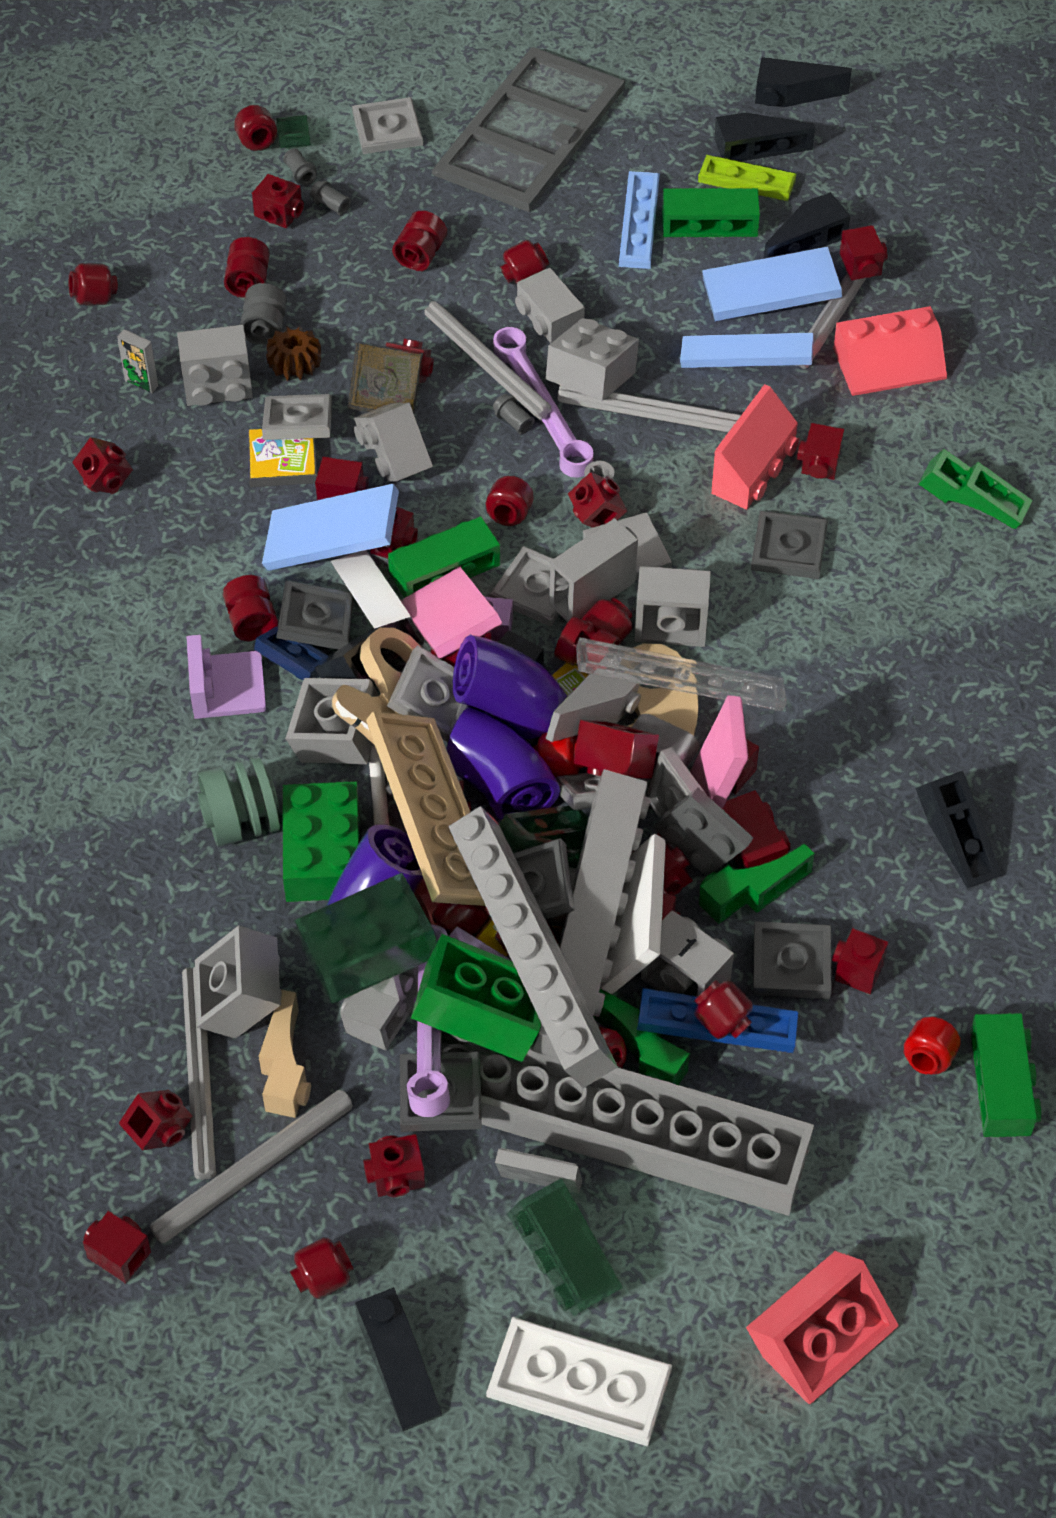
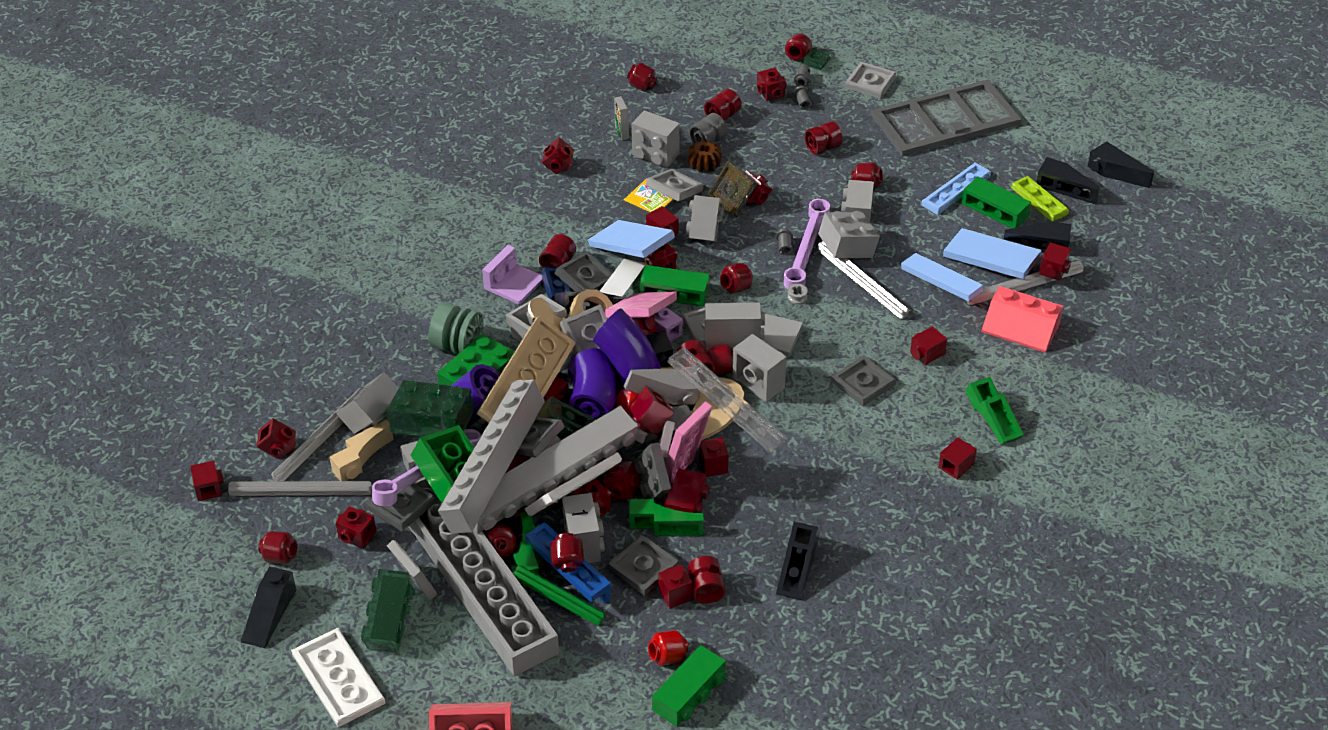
camera: 40 degrees right, 10 degrees down
(488, 360) = (797, 225): light grey axle -> none
(597, 500) = (778, 300): dark red brick -> none
(744, 1071) = (559, 595): none -> green axle
(754, 450) = (887, 320): coral slope -> none
(881, 919) = (706, 579): none -> dark red wheel
(997, 577) = (957, 458): none -> dark red brick

